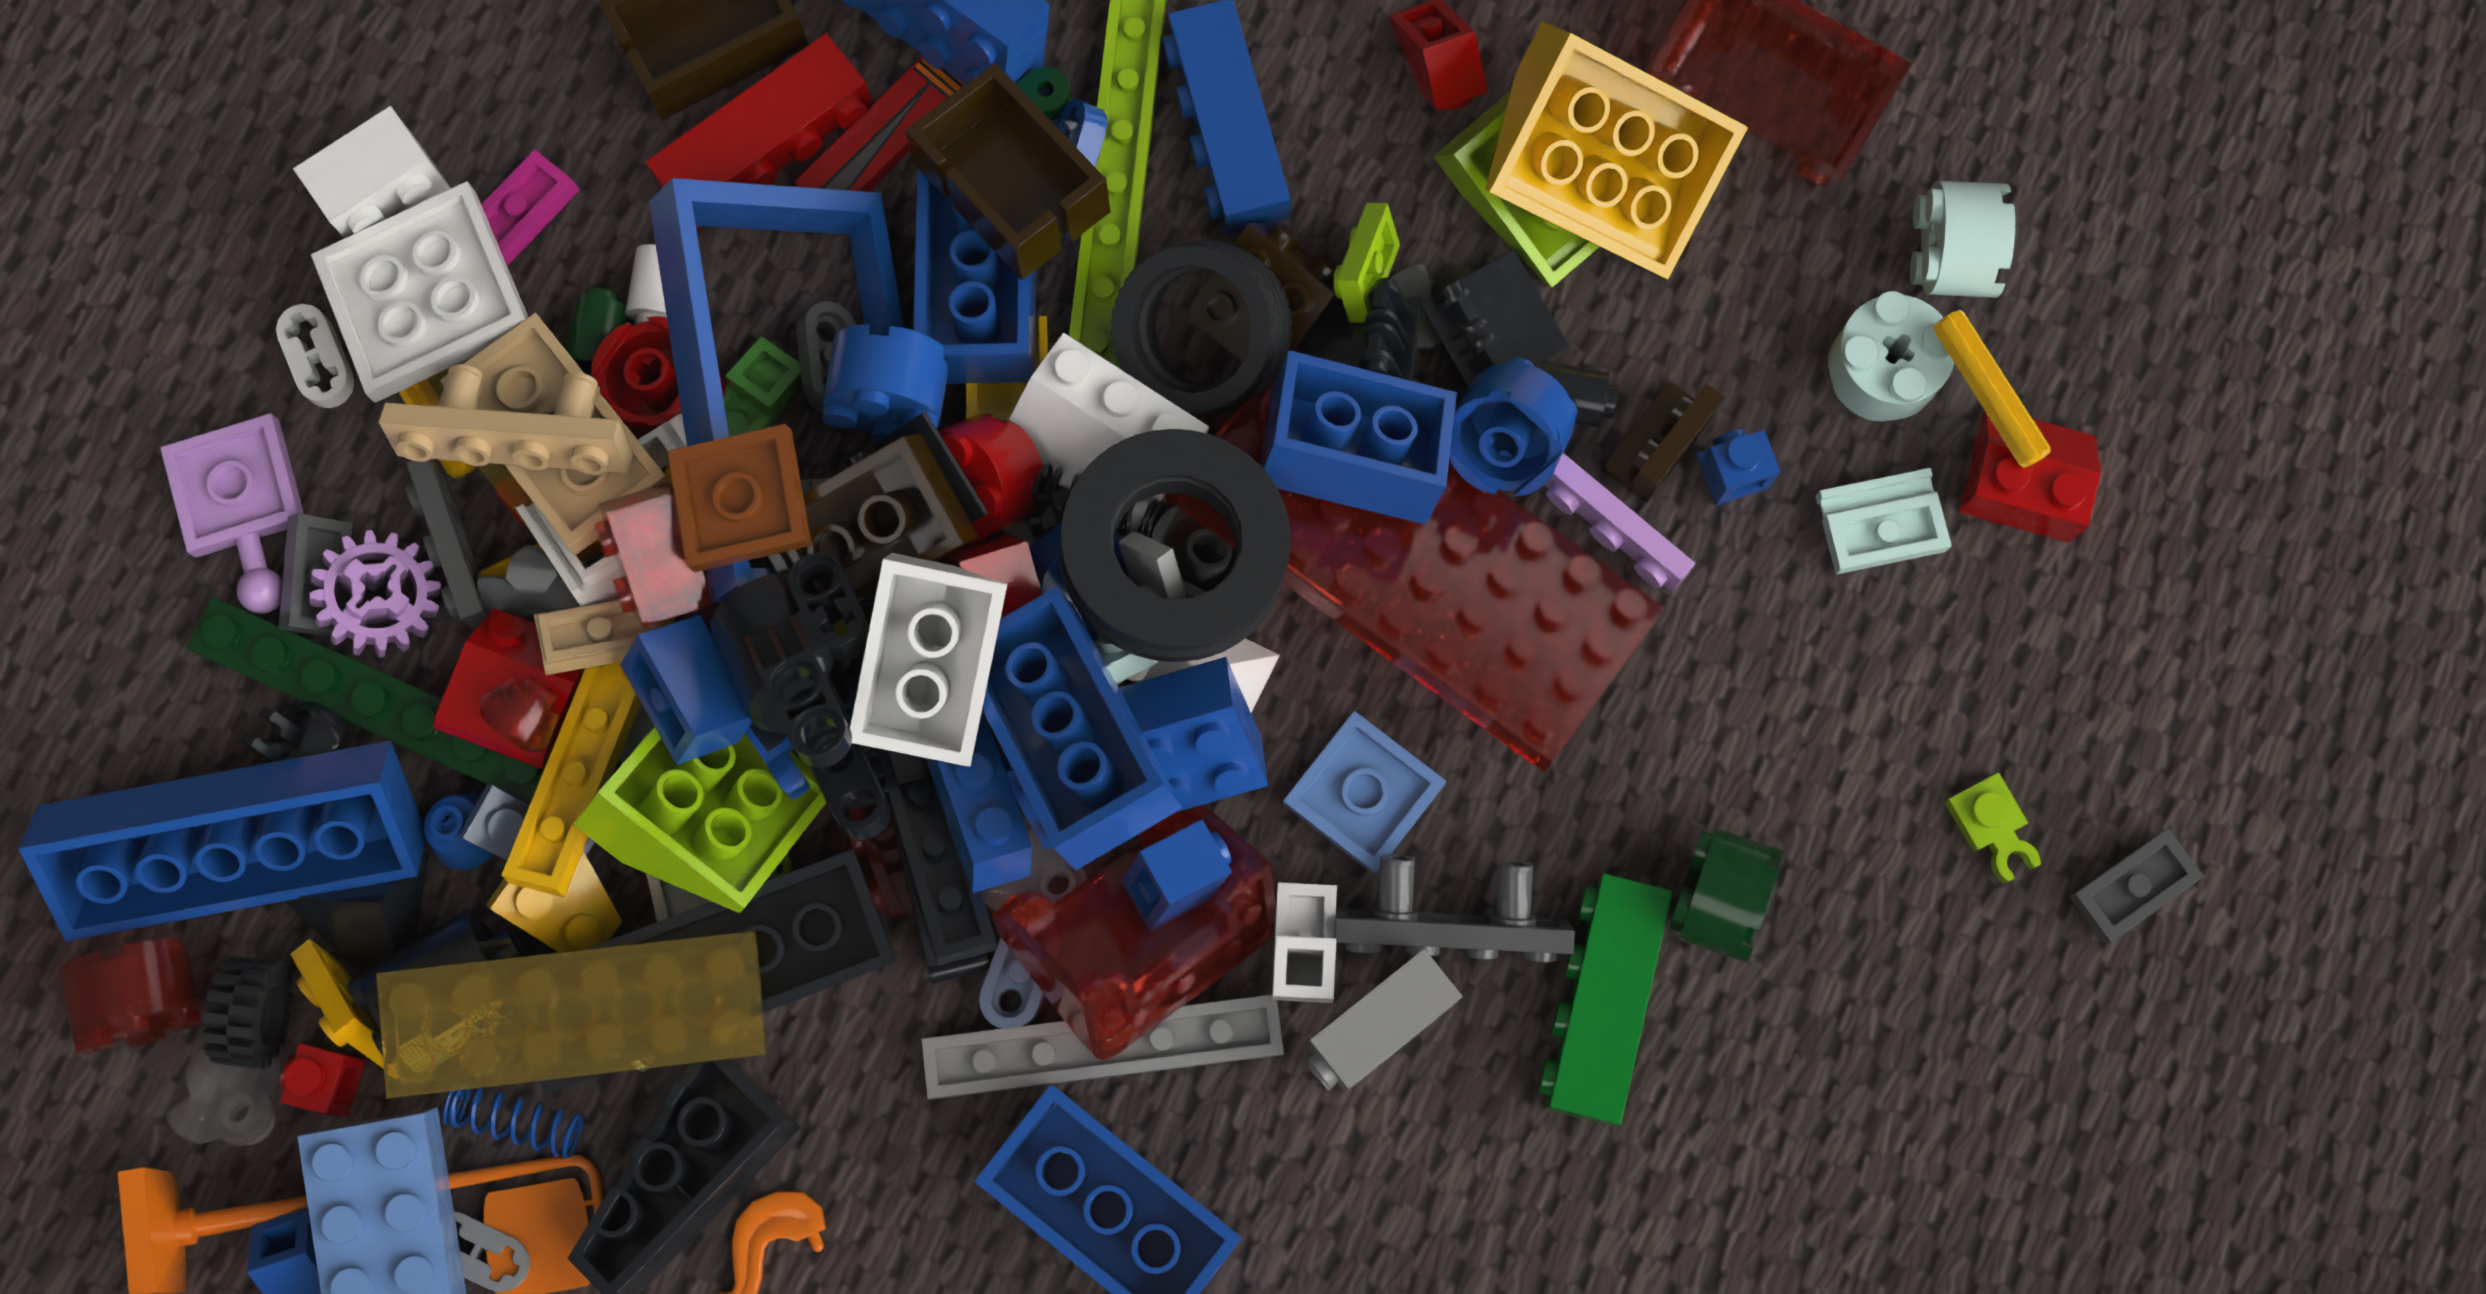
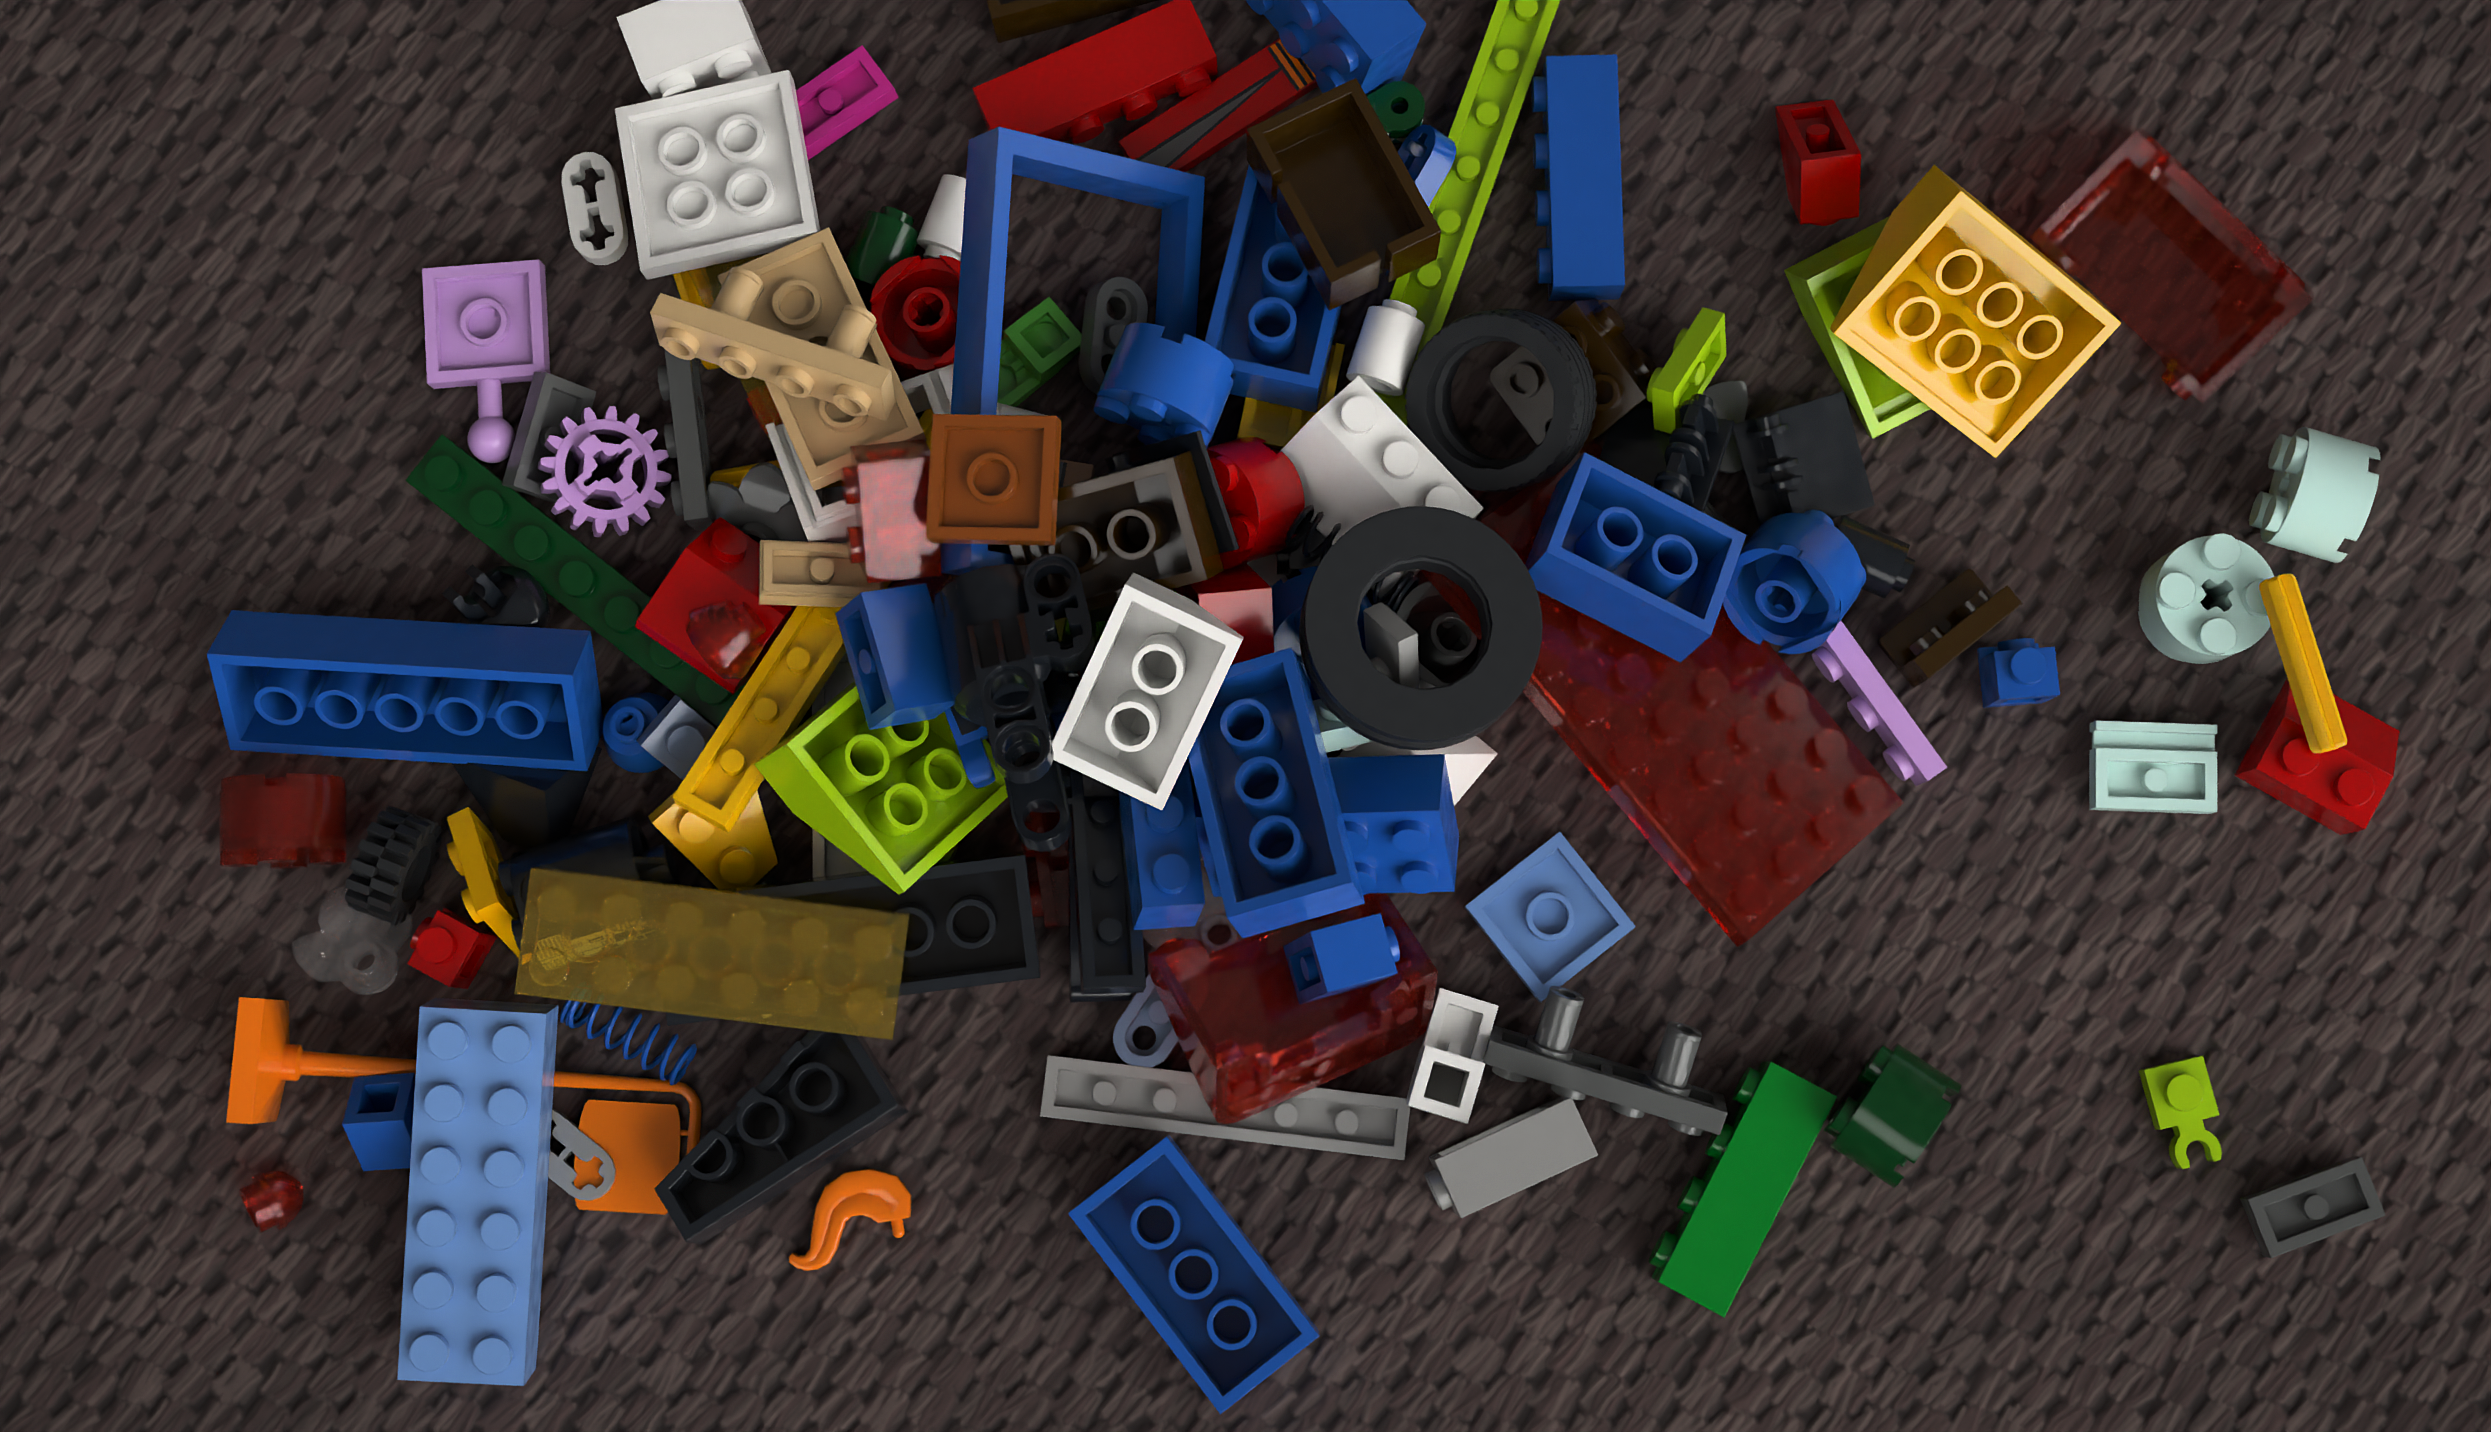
camera: 20 degrees right, 5 degrees up
(1085, 304) = (1387, 347): none -> white brick

